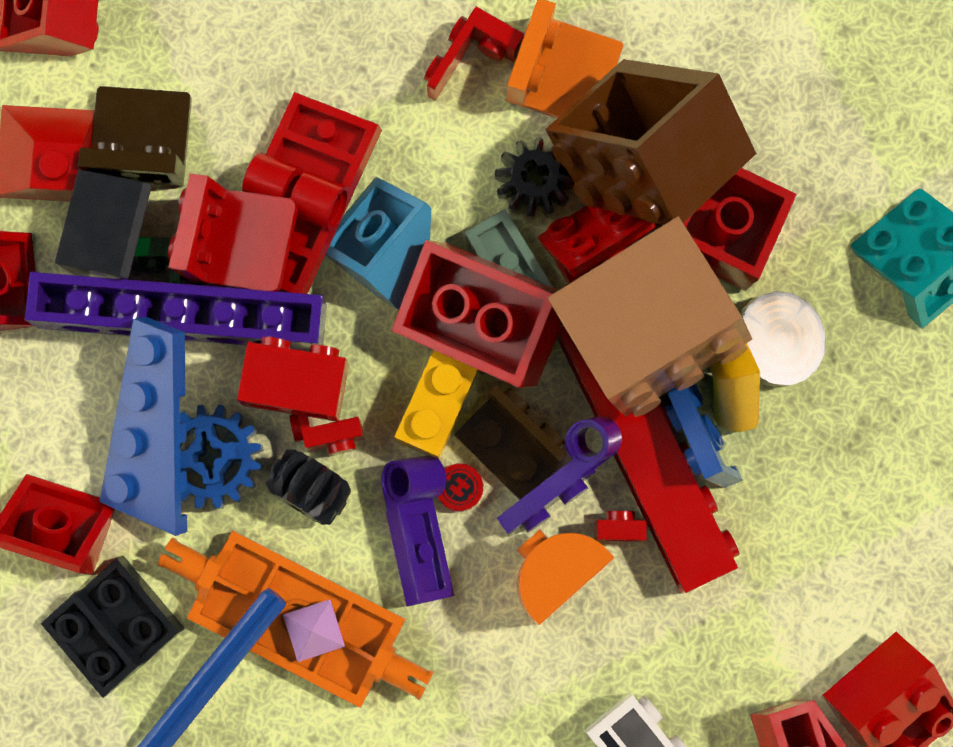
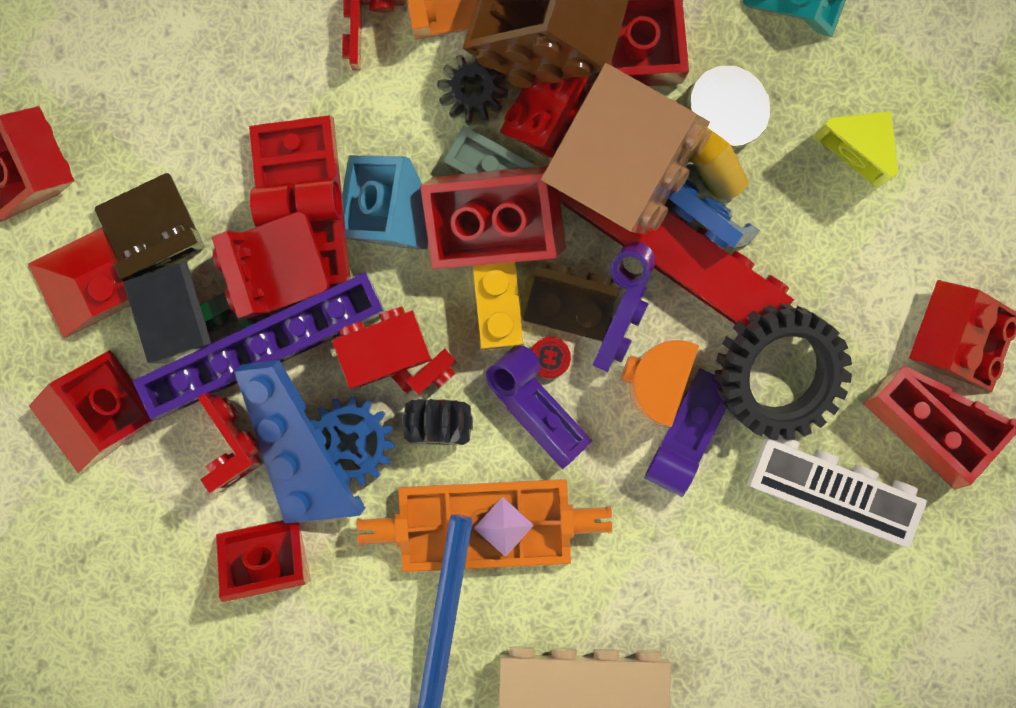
camera: 25 degrees left, 5 degrees up
(97, 413) = (229, 468): none -> red bracket
(112, 626) = (349, 609): black slope -> none
(557, 644) = (689, 436): none -> dark purple plate
(620, 527) = (688, 318): red plate -> none
(702, 684) = (814, 402): none -> black tyre
(895, 450) = (863, 143): none -> neon yellow slope

